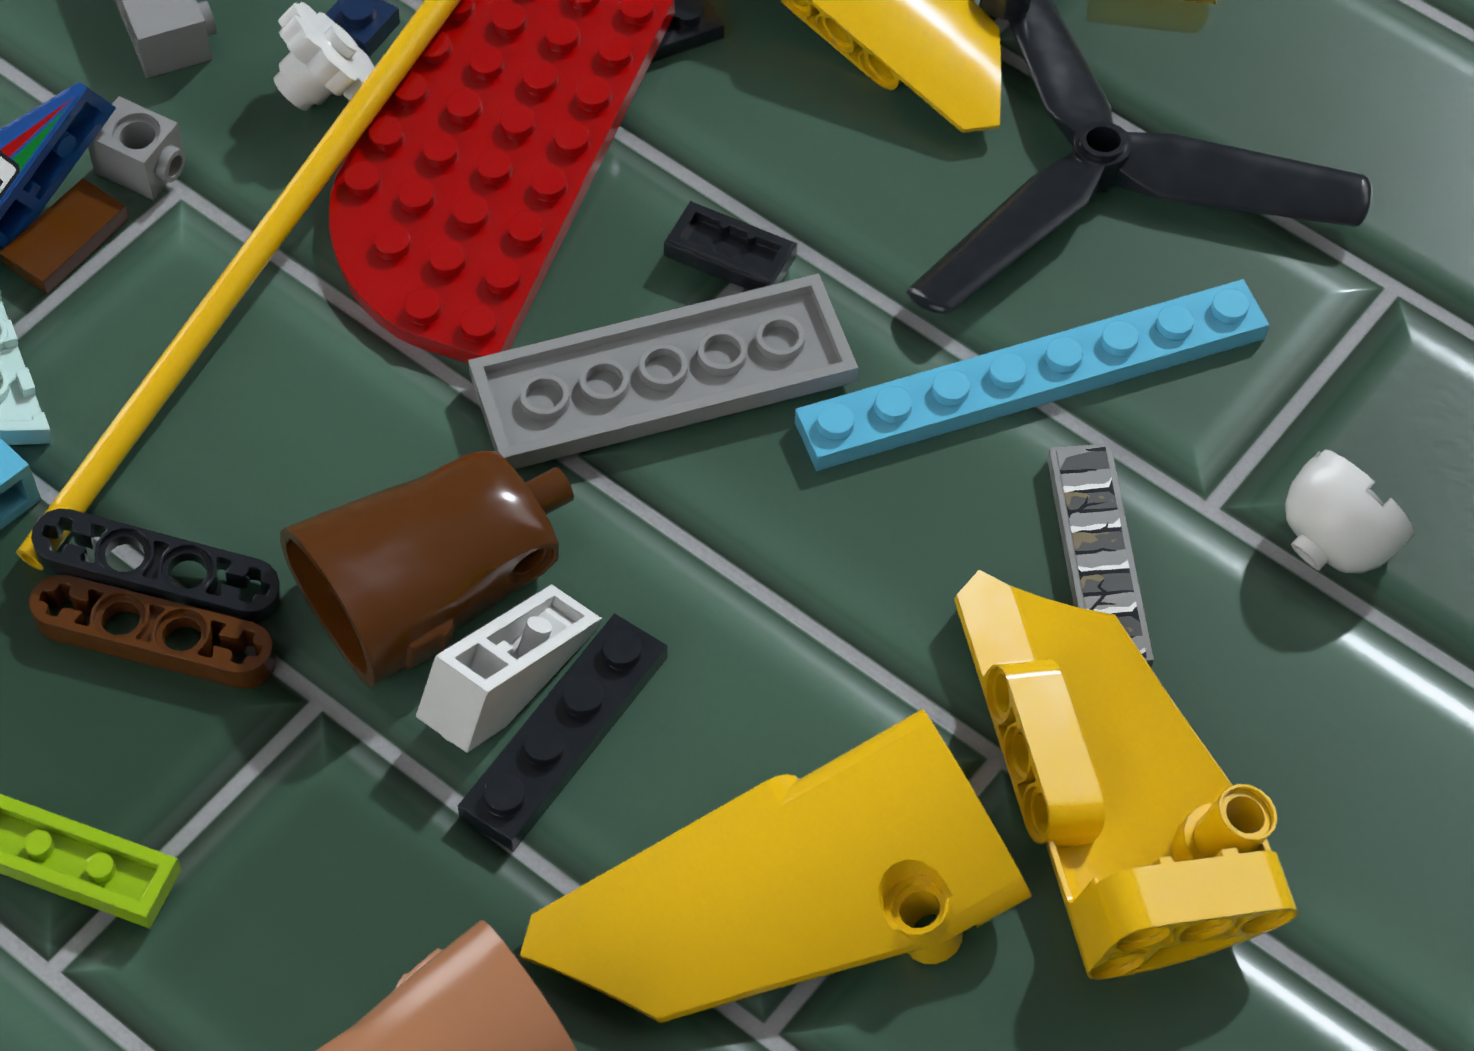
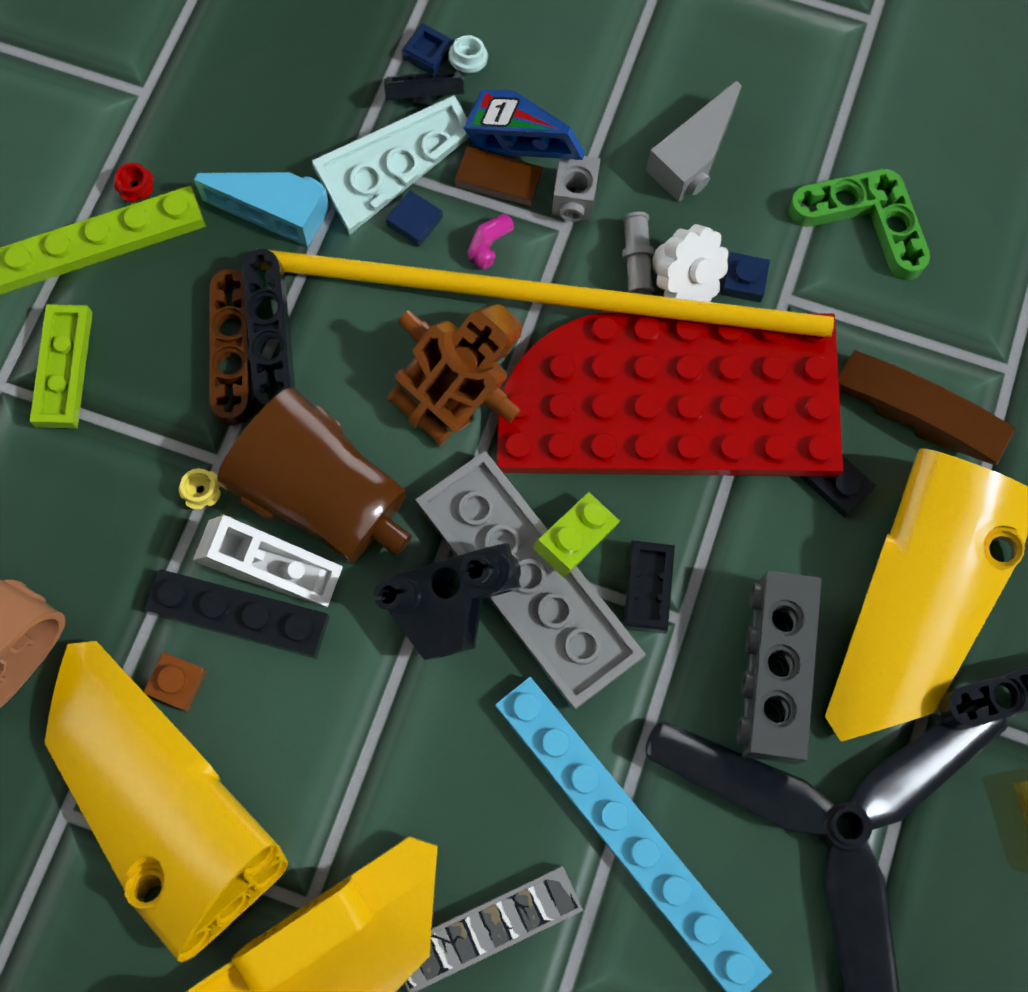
camera: 70 degrees right, 15 degrees up
(73, 351) = (414, 218): none -> dark blue tile
(151, 273) = (486, 233): none -> dark pink arm
(268, 115) = (638, 253): none -> light grey pin
(348, 346) = (456, 370): none -> dark orange piece
(356, 709) = (190, 483): none -> light yellow plate
(627, 828) = (175, 682): none -> dark orange plate
(631, 295) = (575, 534): none -> lime plate
(687, 466) = (434, 613): none -> black piece
(893, 135) = (797, 603): none -> dark grey brick

